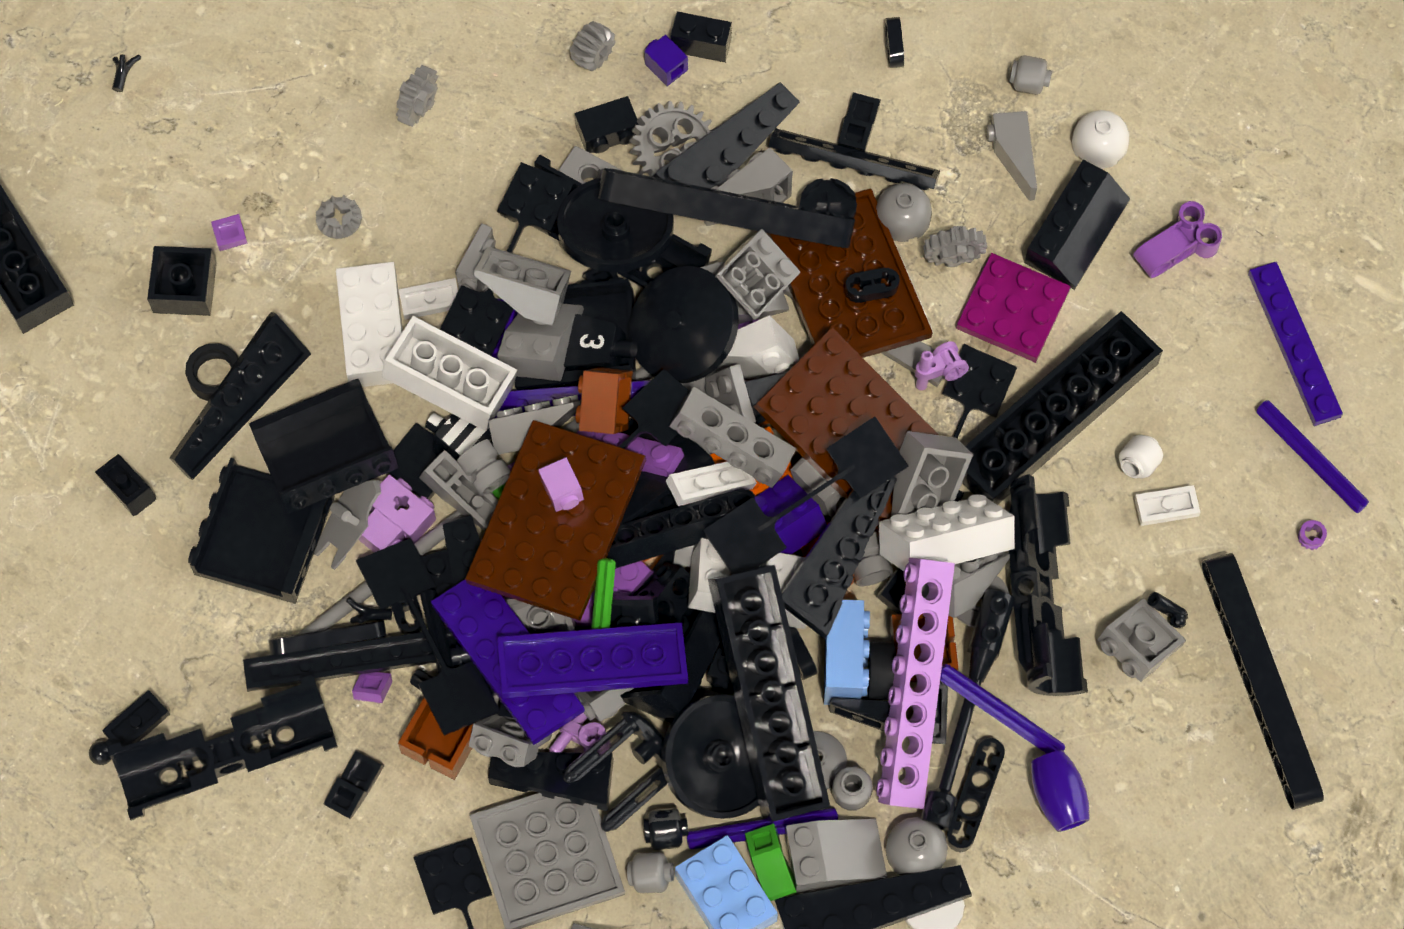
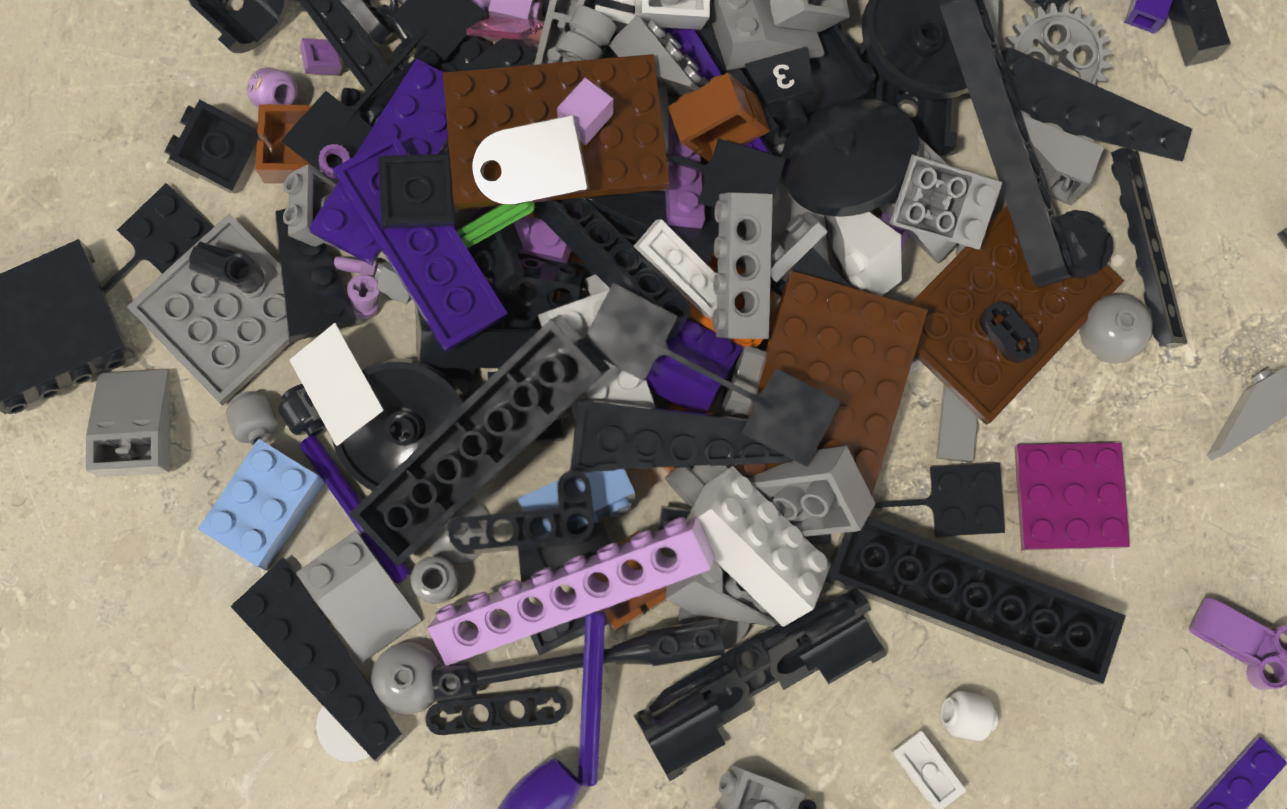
camera: 60 degrees right, 10 degrees up
(354, 785) = (221, 91): black slope -> none
(382, 734) = (272, 87): none -> lavender head
(403, 804) = (212, 145): none -> black plate
(437, 526) = (505, 28): none -> clear pink piece
(483, 691) = (333, 149): none -> medium lavender axle
(516, 834) = (225, 266): none -> black piece
(552, 641) = (416, 191): none -> black tile
(584, 536) = (534, 160): none -> tile
(650, 746) = (390, 319): black piece -> none
(663, 785) = (336, 384): none -> white sticker
(770, 862) = (314, 532): bright green slope -> none
(805, 662) = (556, 457): black beam -> none
(851, 688) = (523, 521): none -> black beam
(859, 121) = (1196, 233): black slope -> none
(941, 362) = (962, 452): lavender piece -> none
(955, 246) = (1103, 399): light grey gear -> none
(1077, 225) = (1206, 520): black slope -> none

